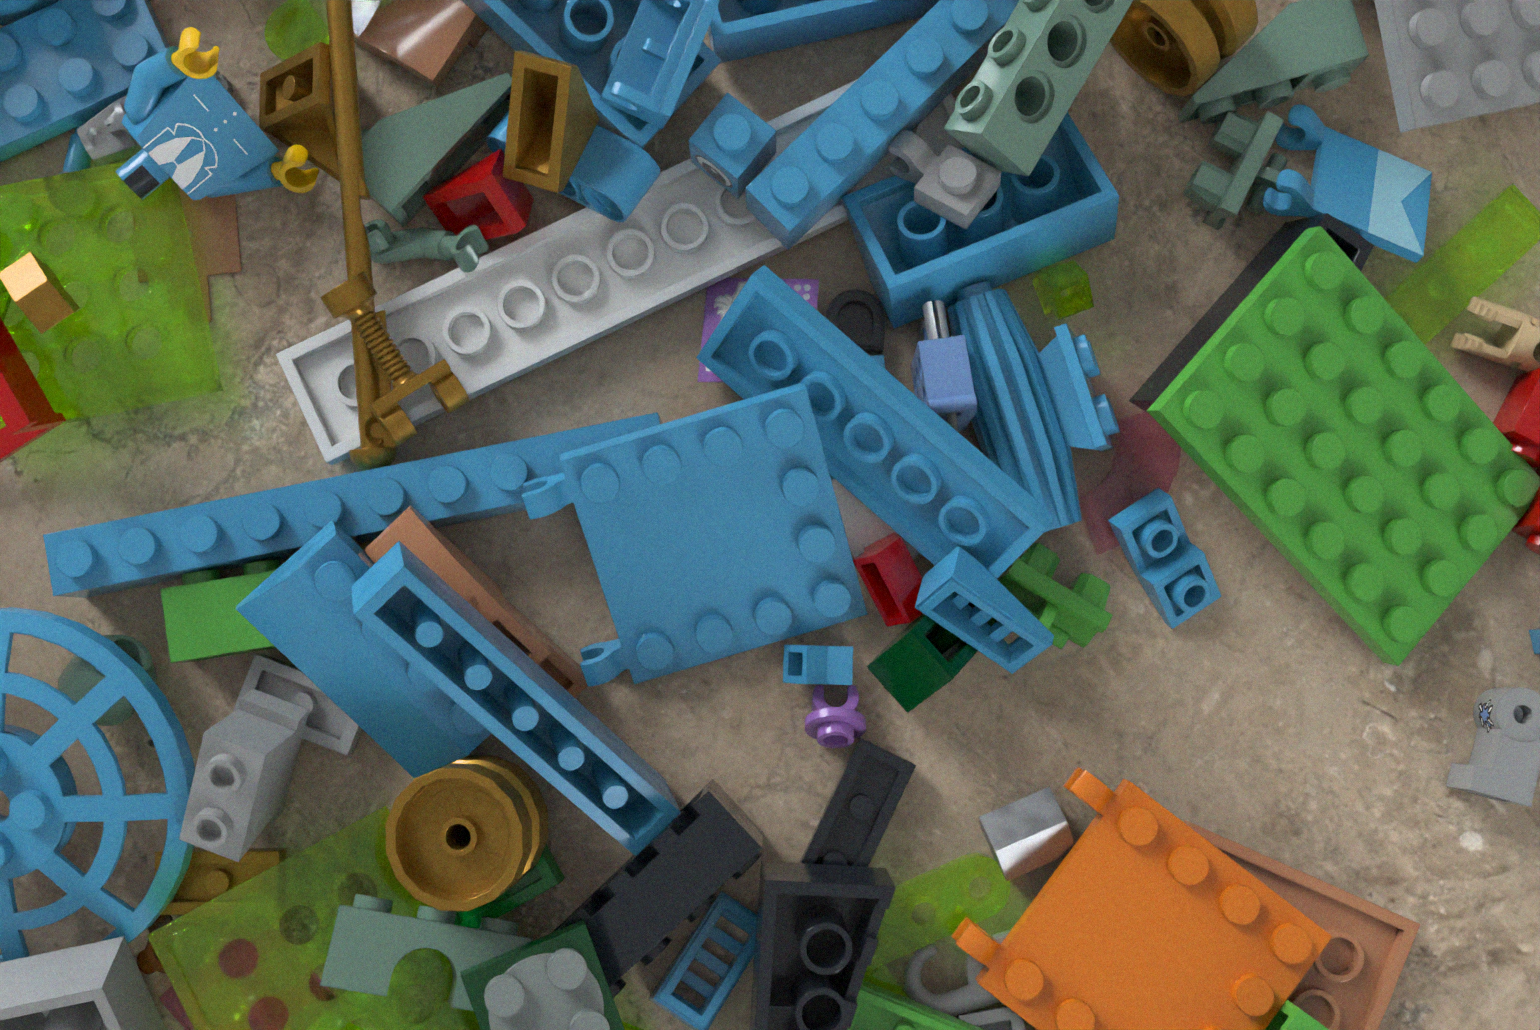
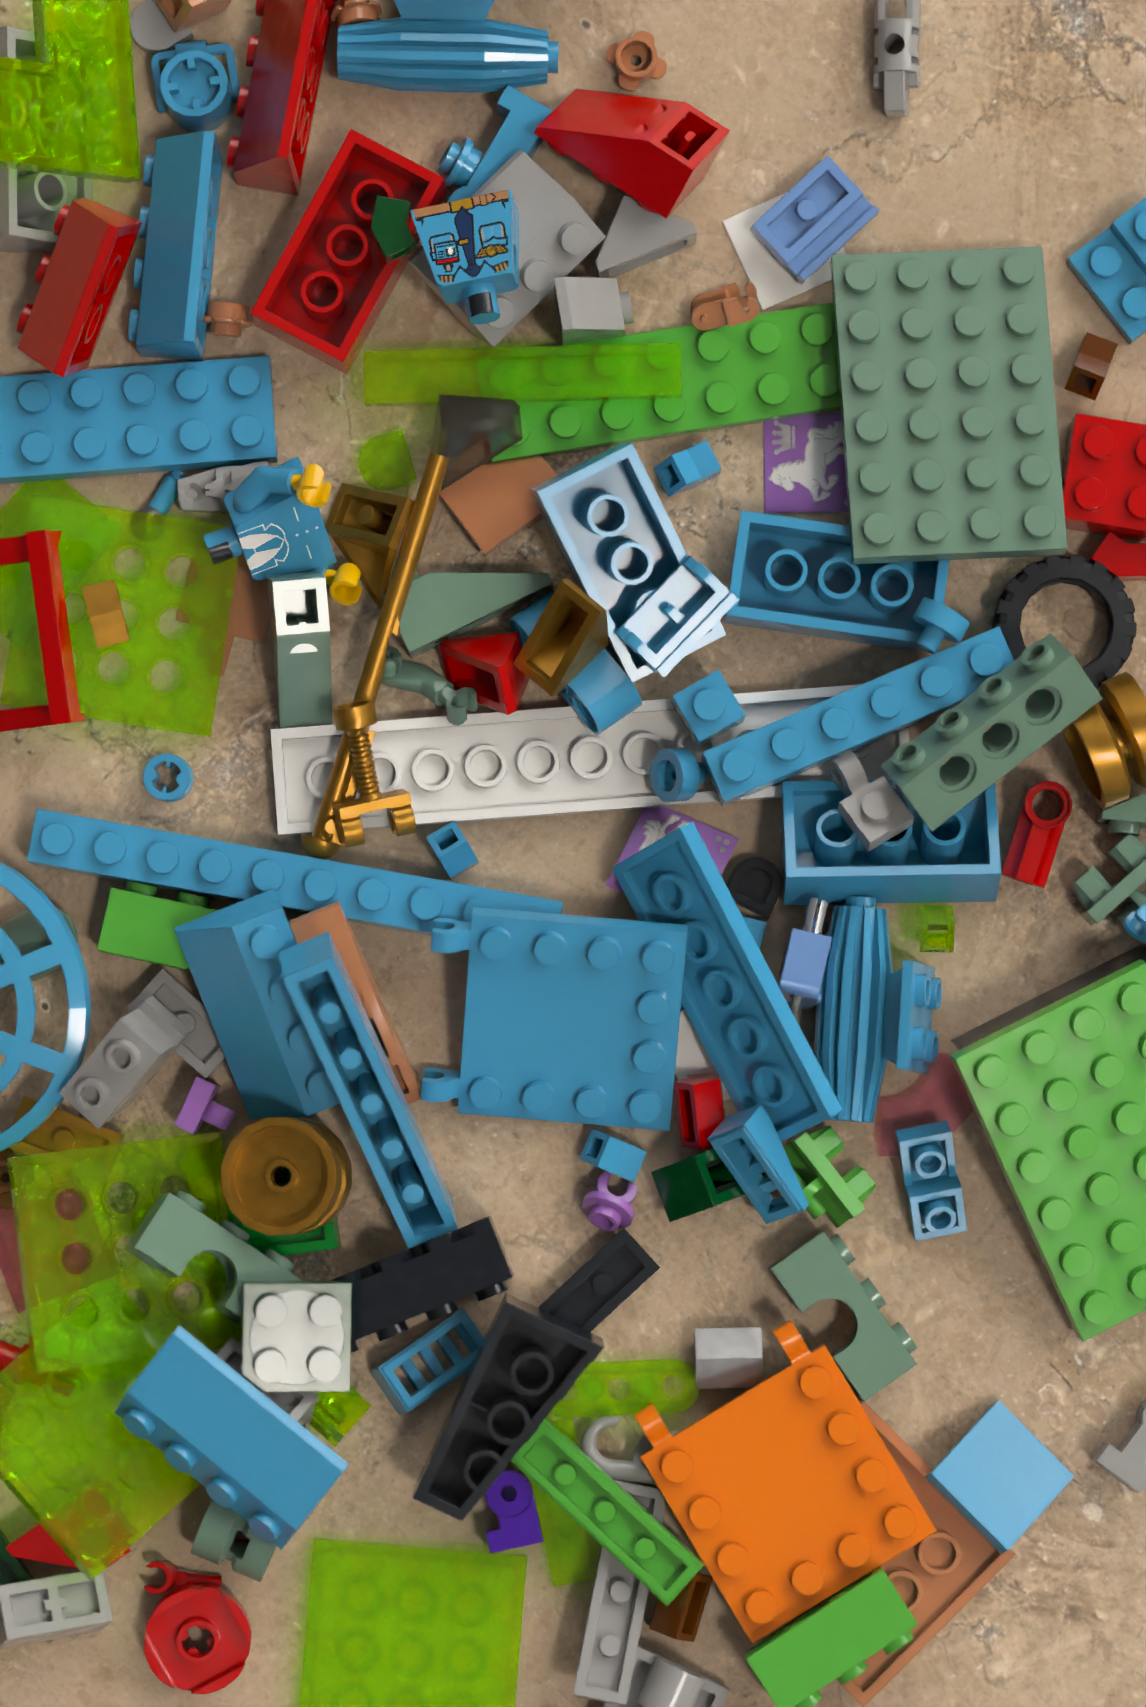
camera: 25 degrees right, 0 degrees up
(207, 443) = (184, 779): none -> dark azure bush
(268, 250) = (300, 648): none -> sand green slope
(354, 788) = (201, 1107): none -> medium lavender tile
(521, 406) = (452, 849): none -> dark azure piece
(726, 230) = (676, 774): none -> dark azure tile
(1131, 155) = (1034, 839): none -> red piece
(1179, 764) = (875, 1350): none -> sand green arch
(1368, 847) = (999, 1477): none -> tile

